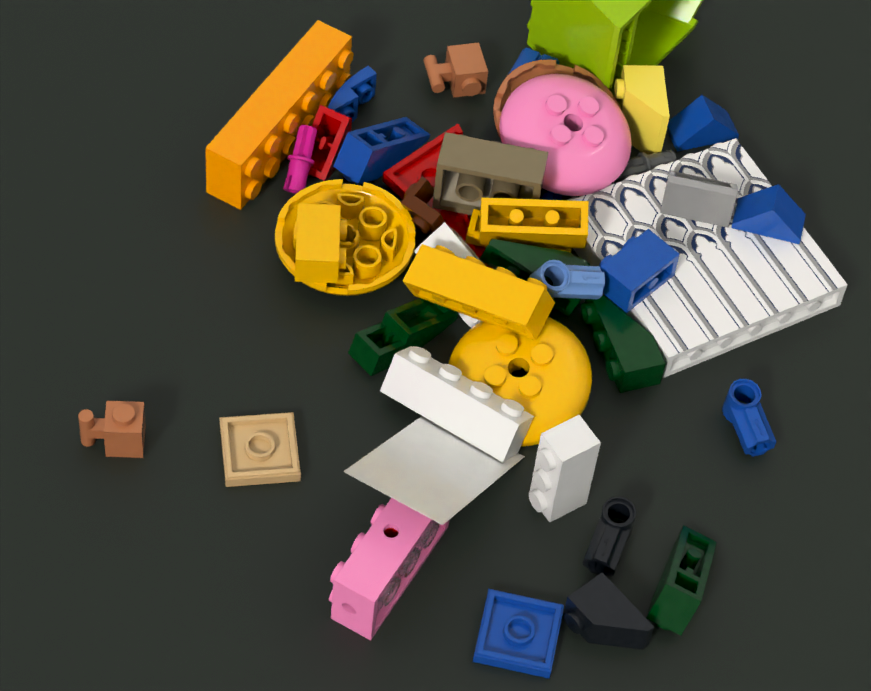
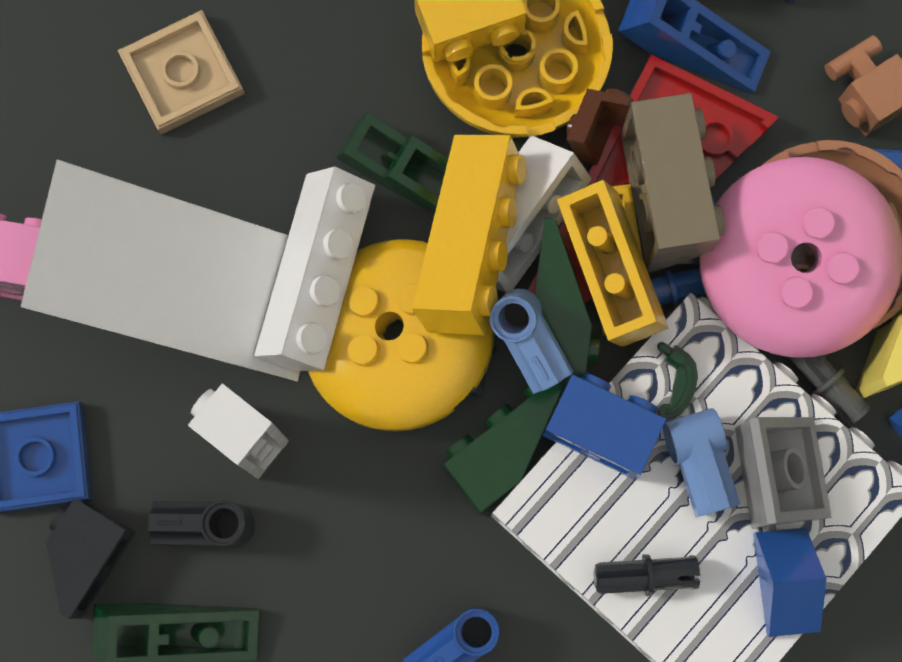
camera: 75 degrees right, 25 degrees up
(616, 222) = (684, 380): none -> dark green piece
(681, 229) = (698, 447): none -> medium blue piece
(741, 283) = (647, 575): none -> black axle

